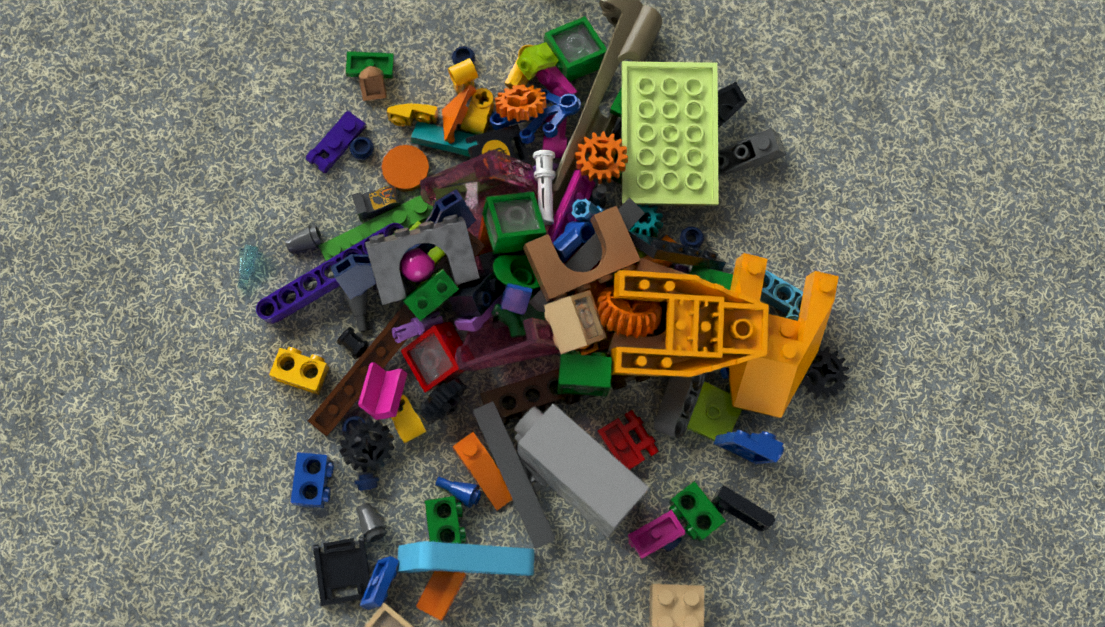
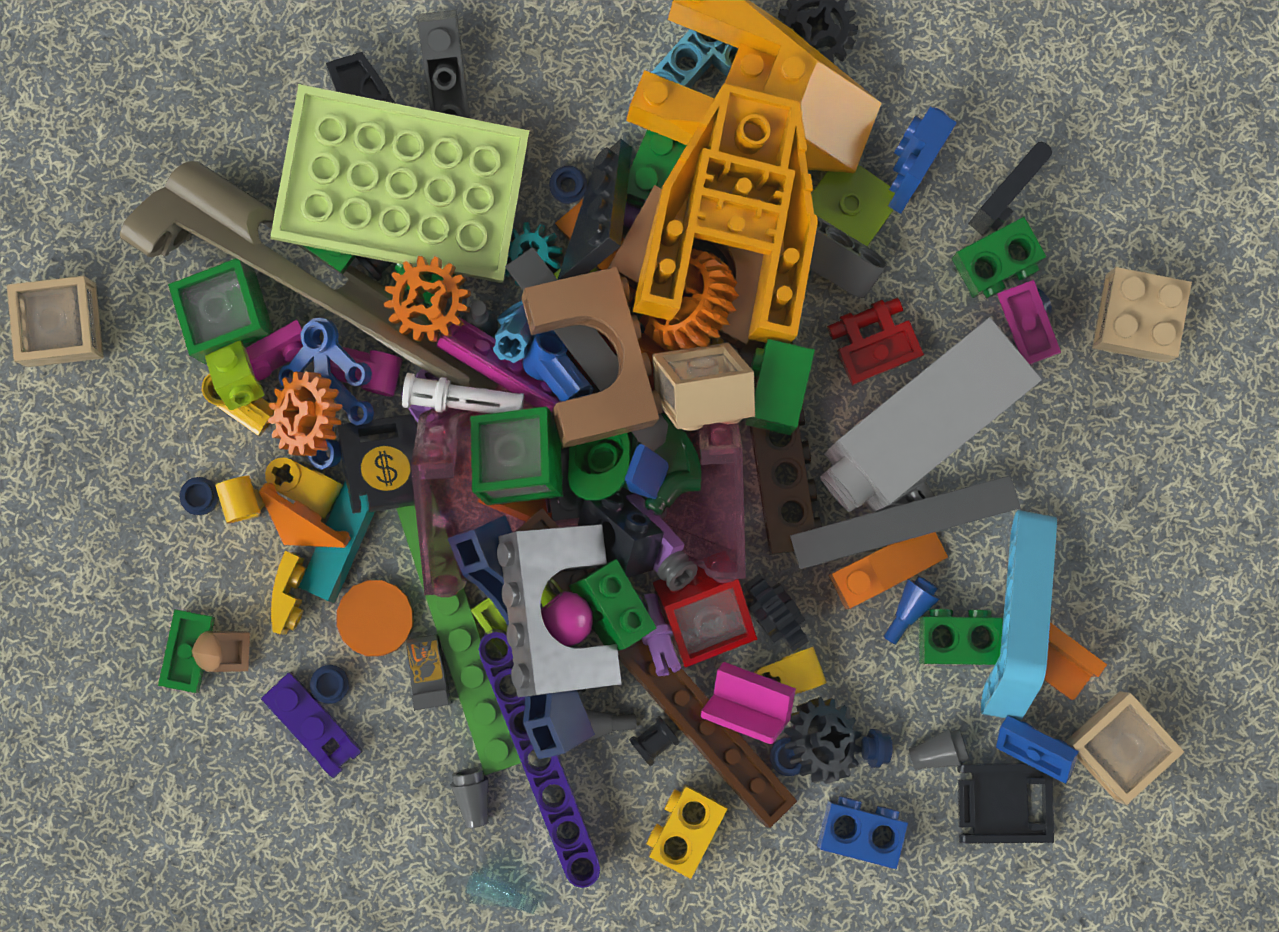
camera: 75 degrees left, 10 degrees up
(458, 330) = (677, 570): none -> dark grey bush

